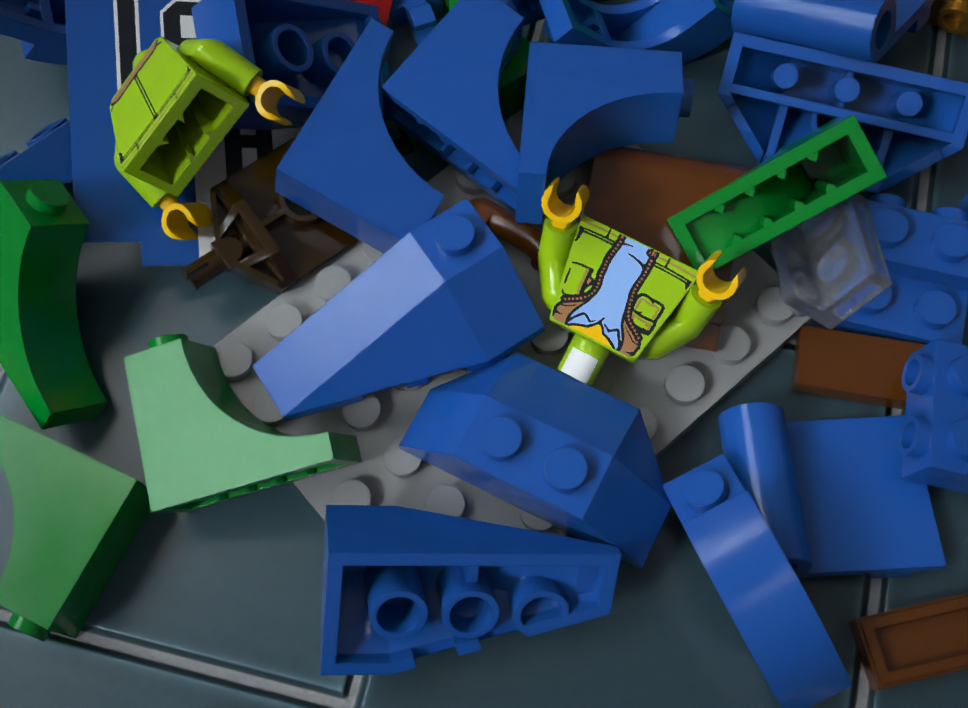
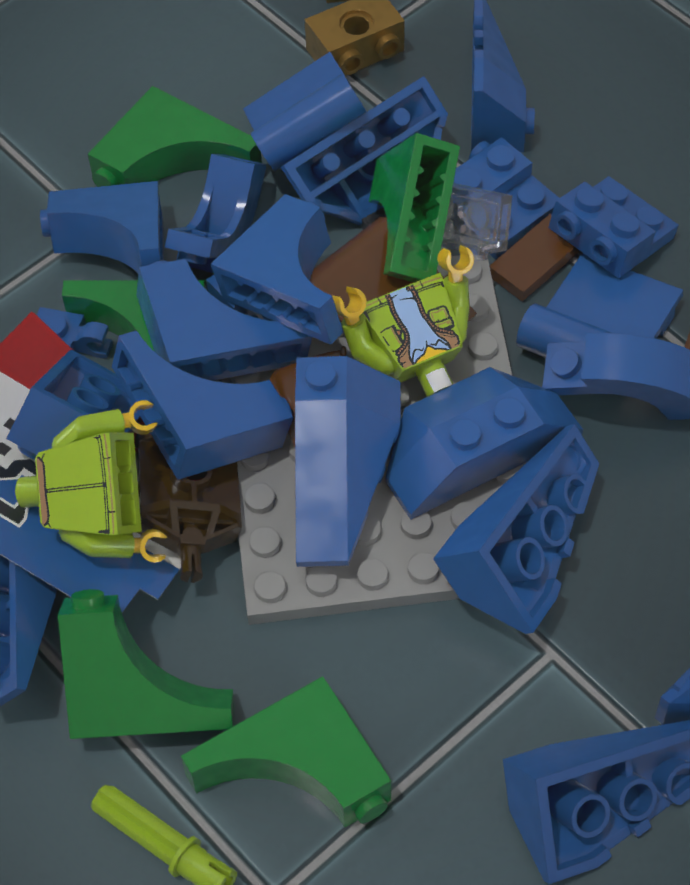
camera: 60 degrees left, 10 degrees down
(201, 439) = (322, 624): arch -> none

